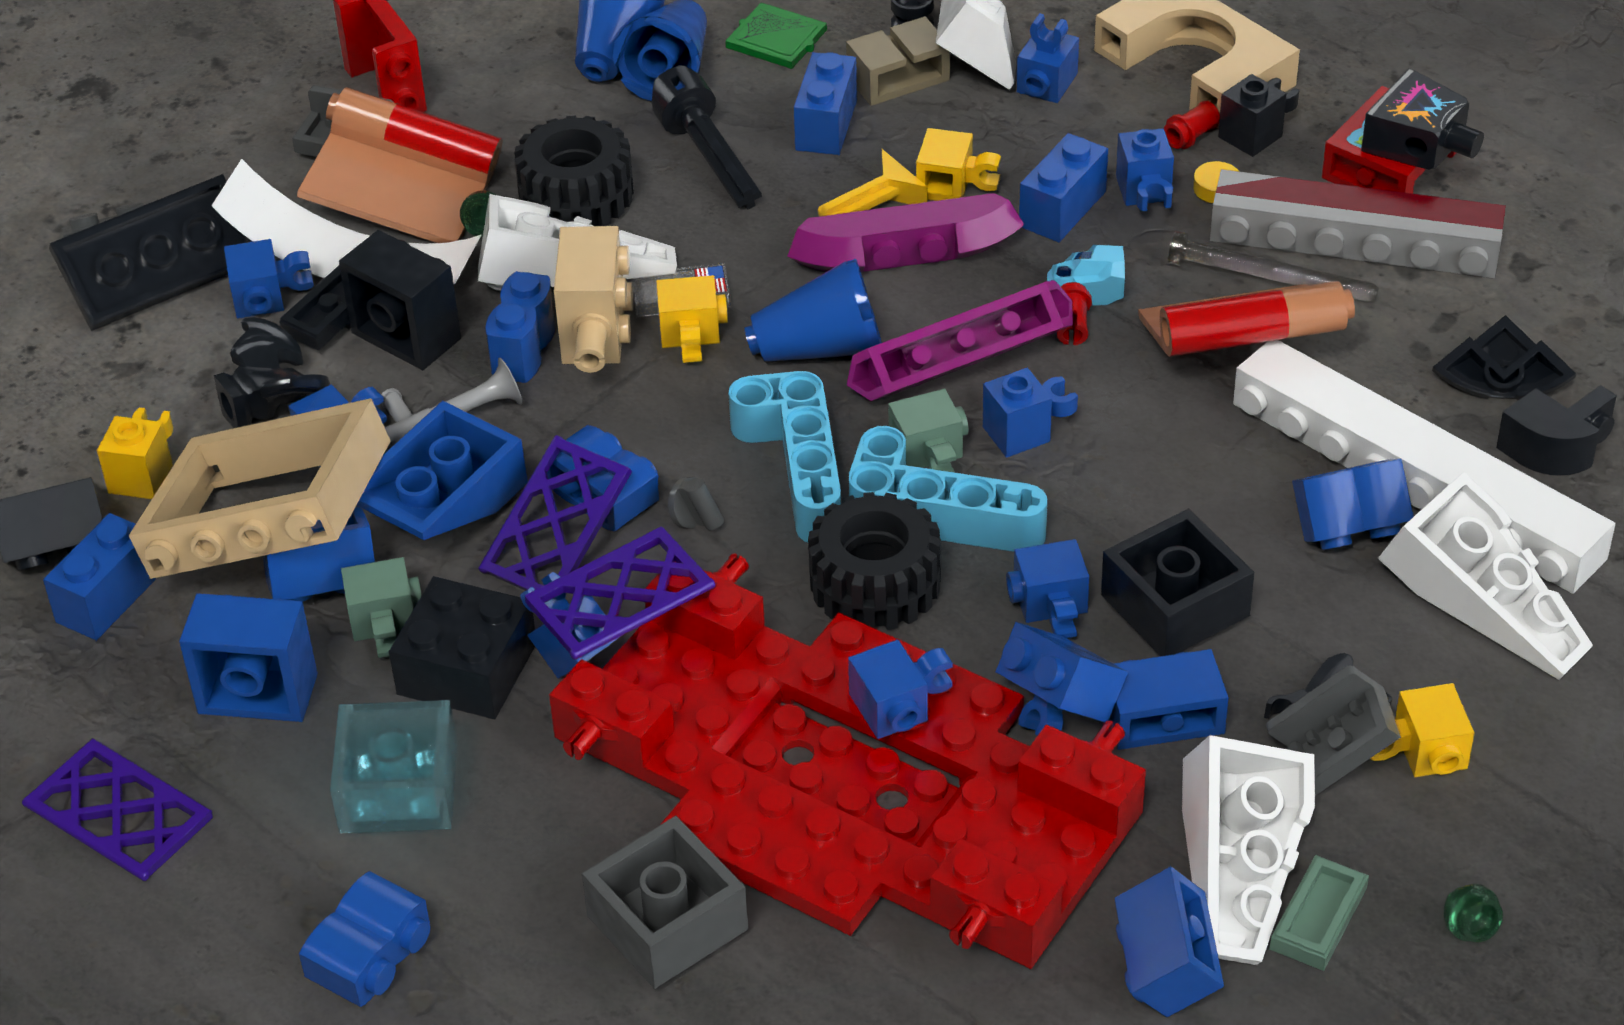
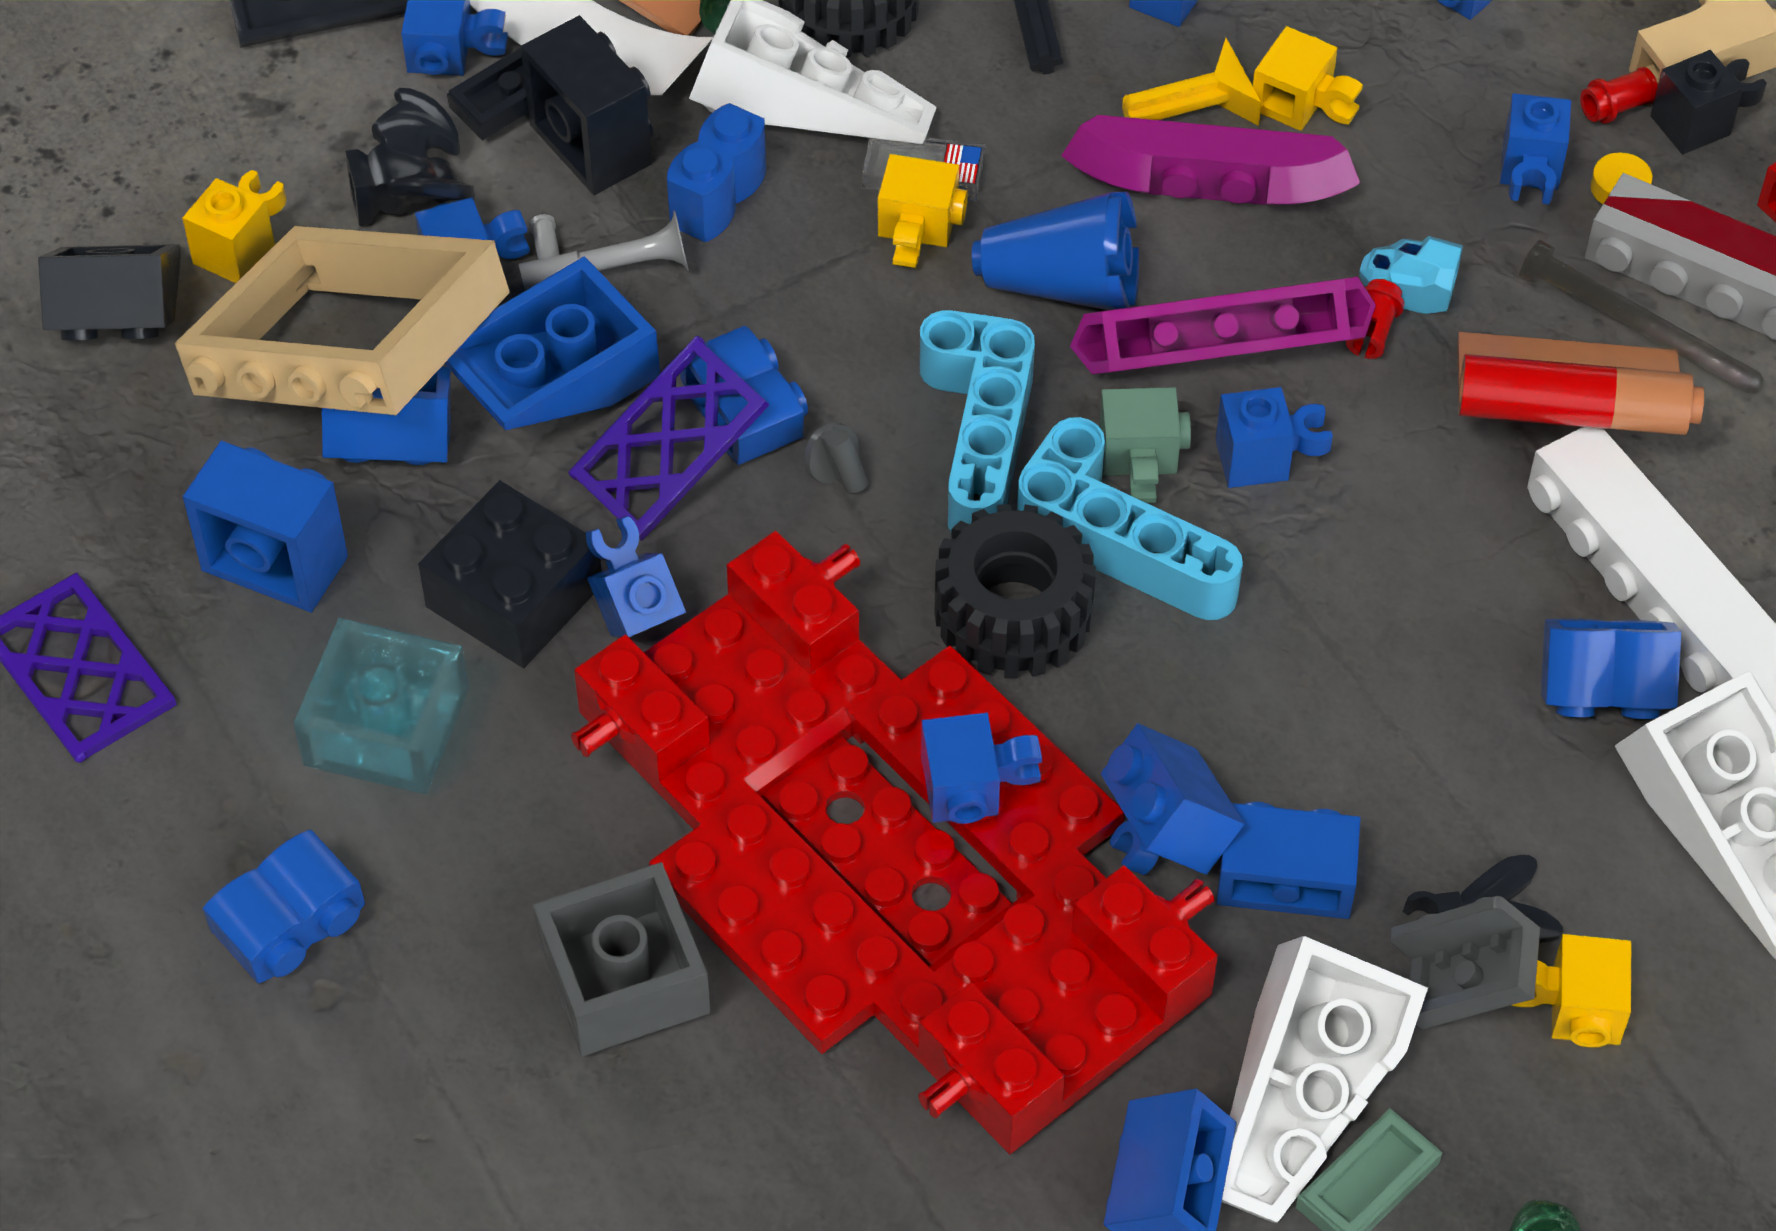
camera: 15 degrees right, 10 degrees up
(97, 579) = (136, 377): blue brick -> none
(379, 600) = (438, 487): sand green brick -> none
(576, 583) = (715, 523): dark purple window -> none
(592, 296) = (806, 158): tan brick -> none
(1050, 584) = (1210, 676): blue brick -> none
(1063, 187) = (1425, 145): blue brick -> none
(1177, 583) = (1356, 717): black brick -> none

